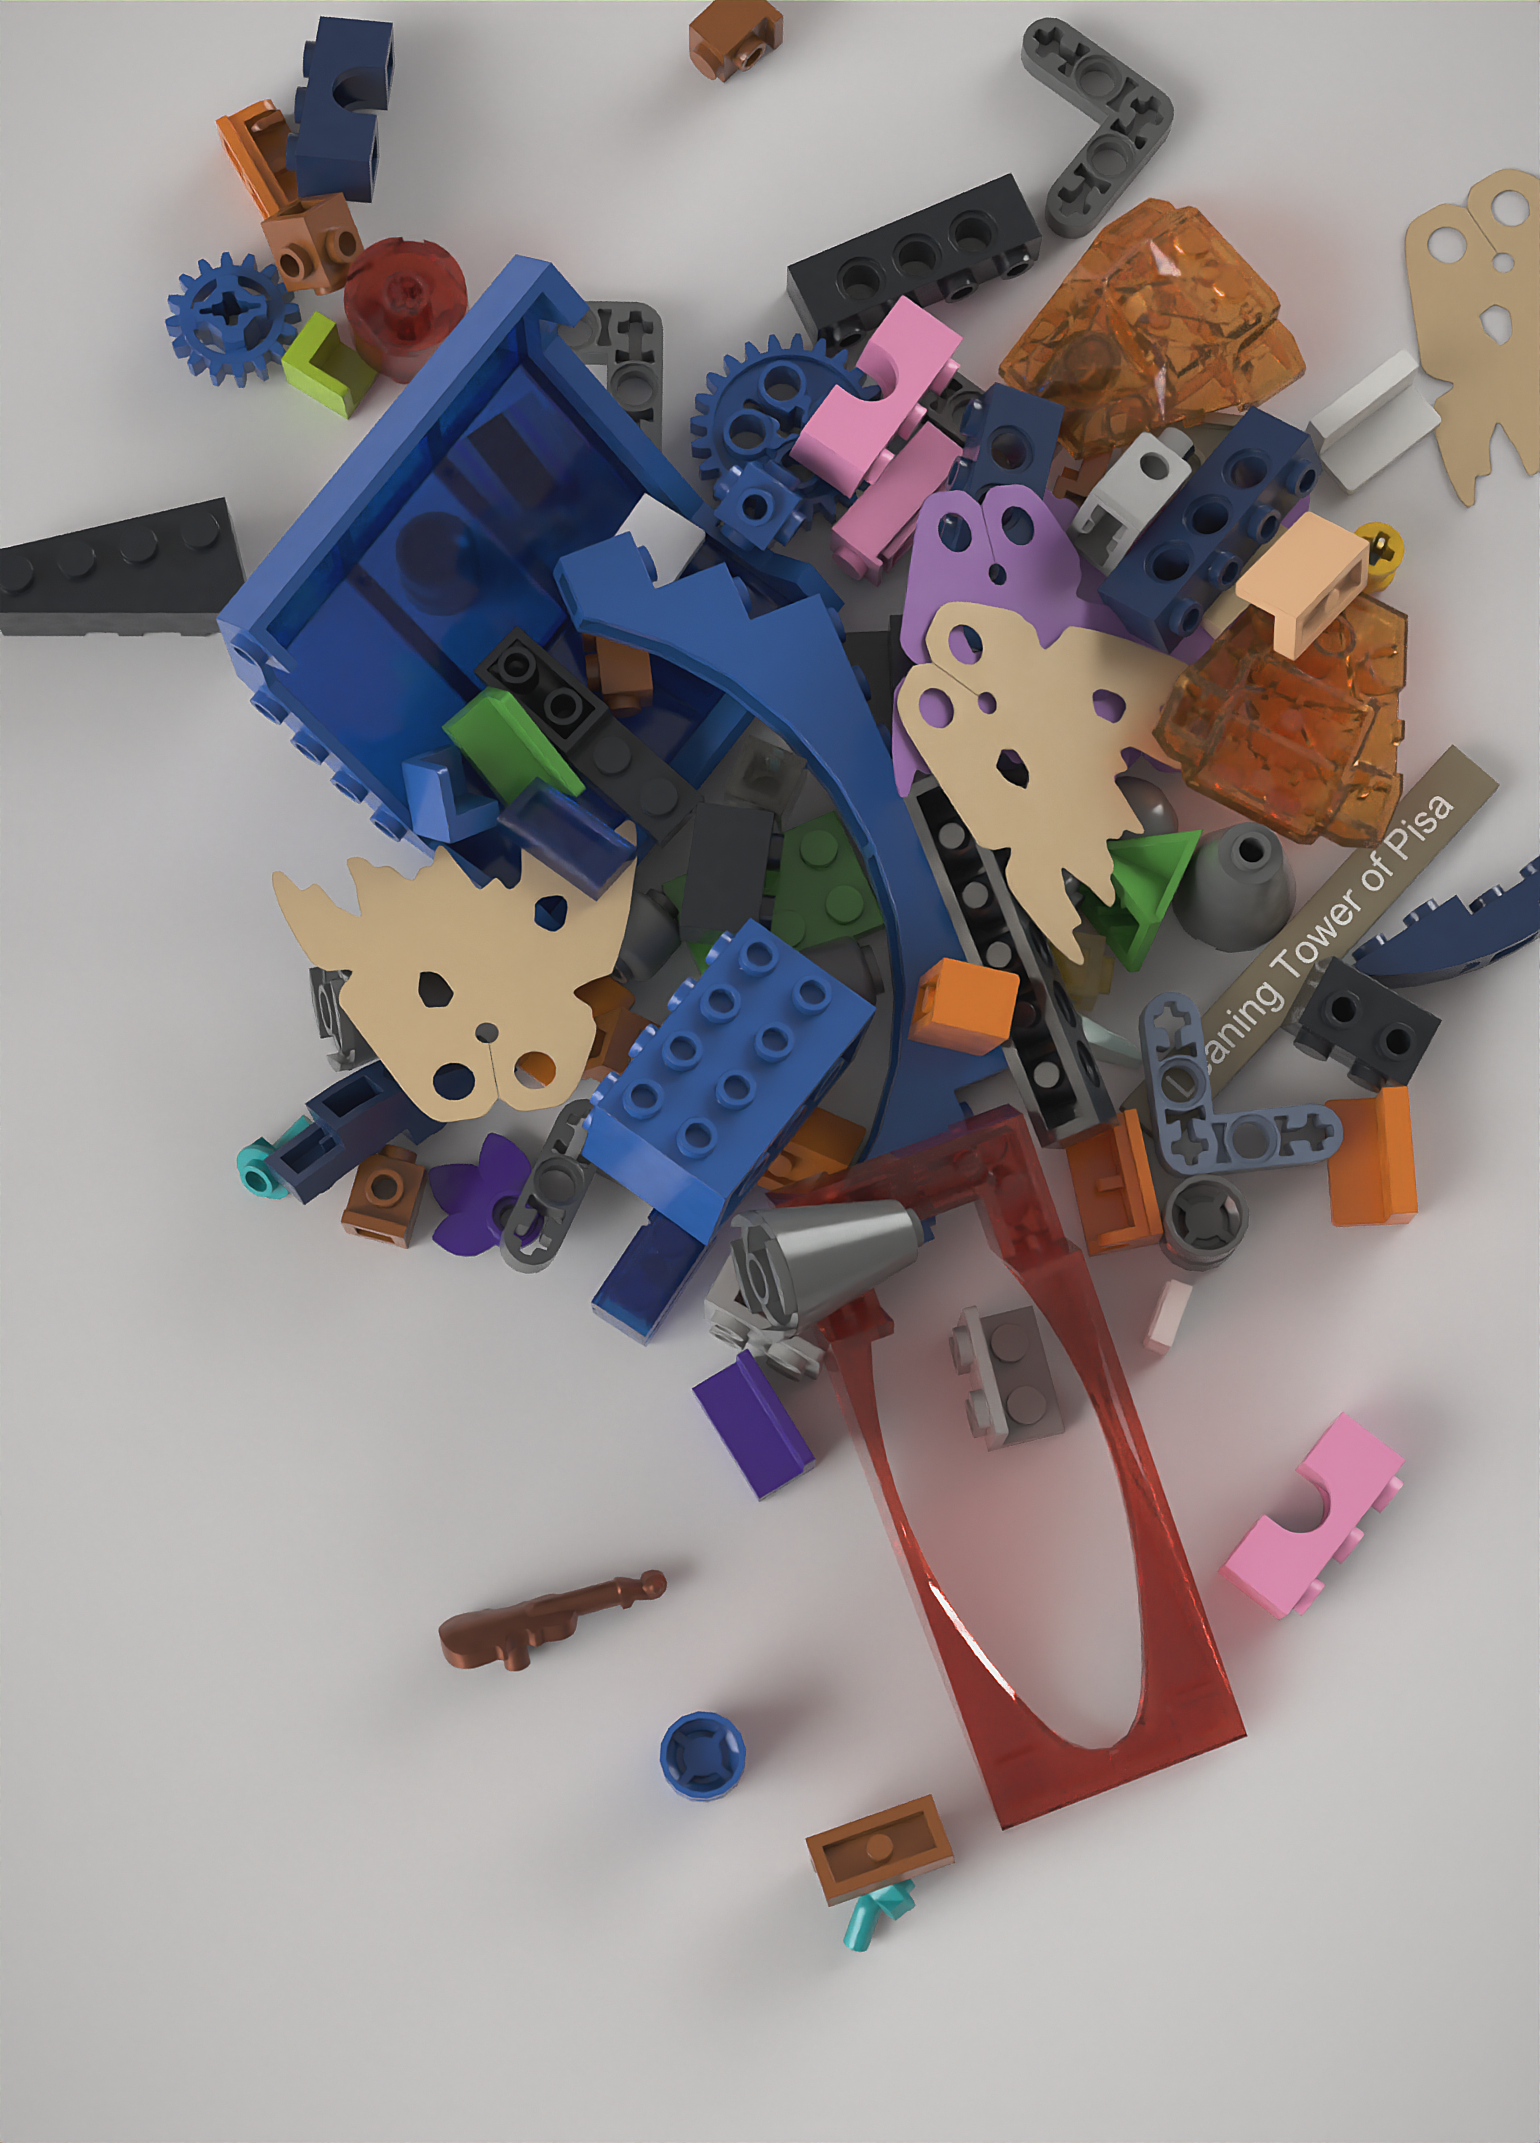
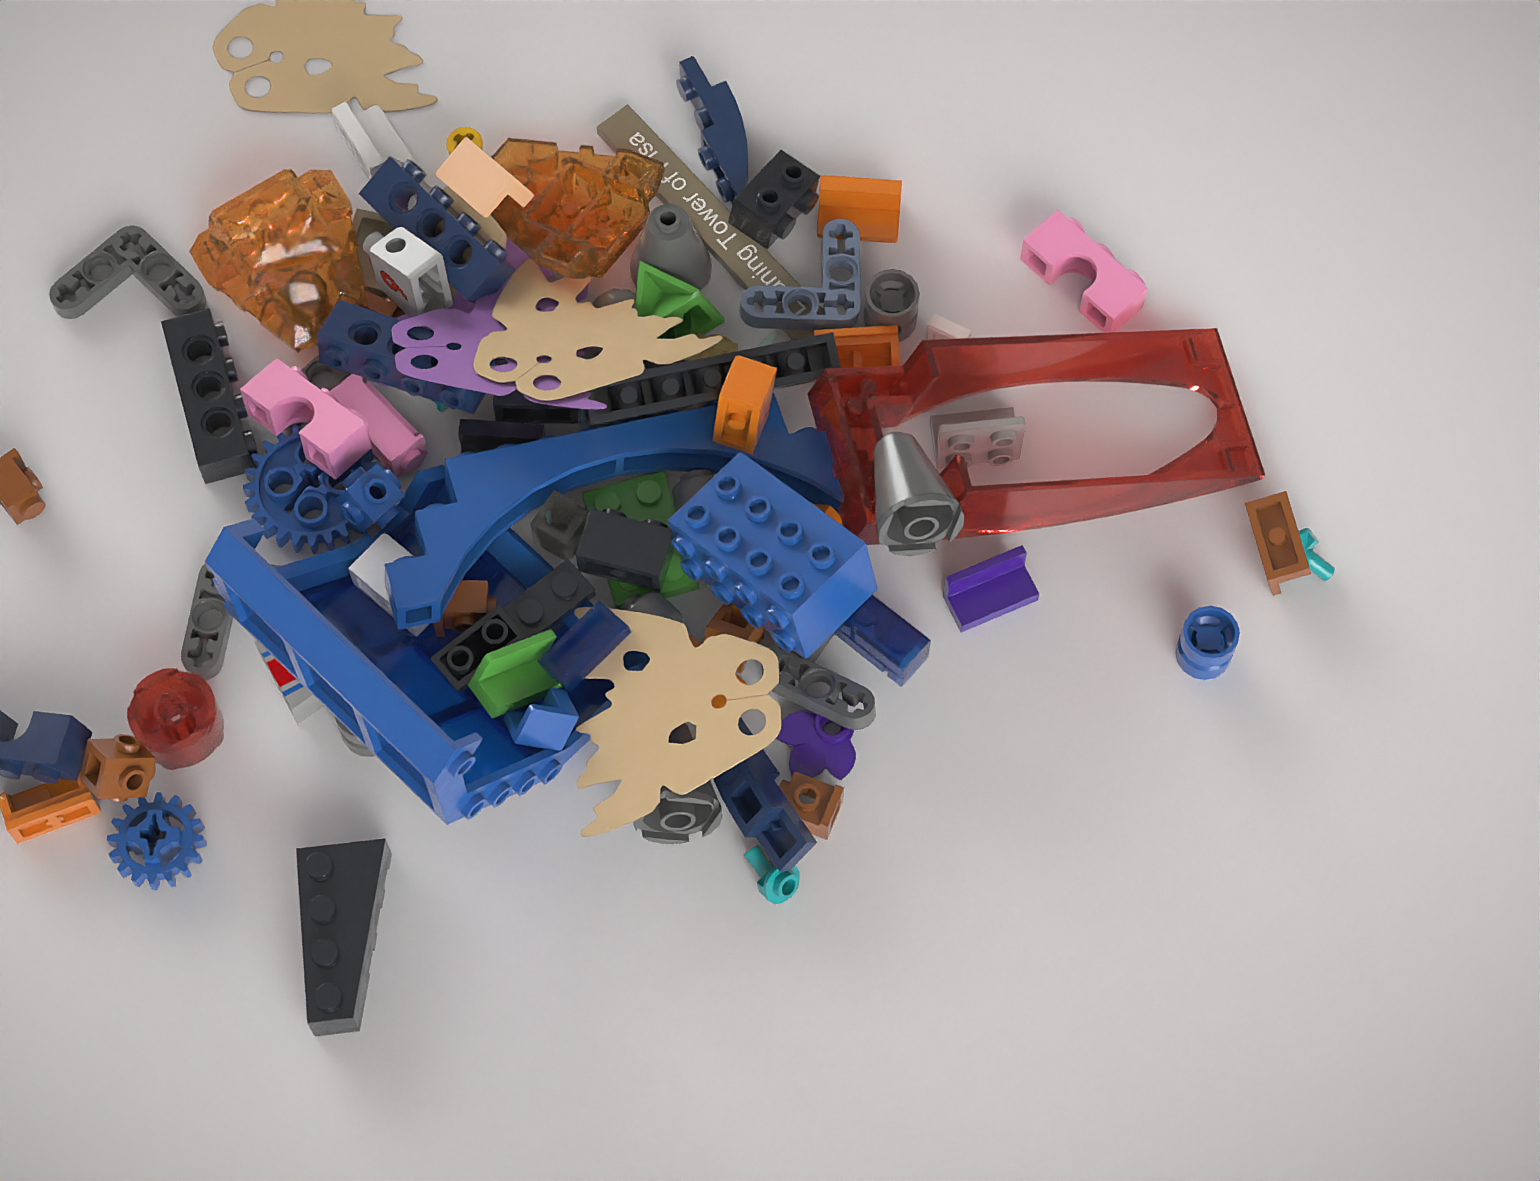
camera: 80 degrees left, 10 degrees down
(327, 367) = (205, 782): lime panel -> none
(504, 1633) = (1116, 766): copper piece -> none
(736, 1327) = (914, 588): light grey bracket -> none

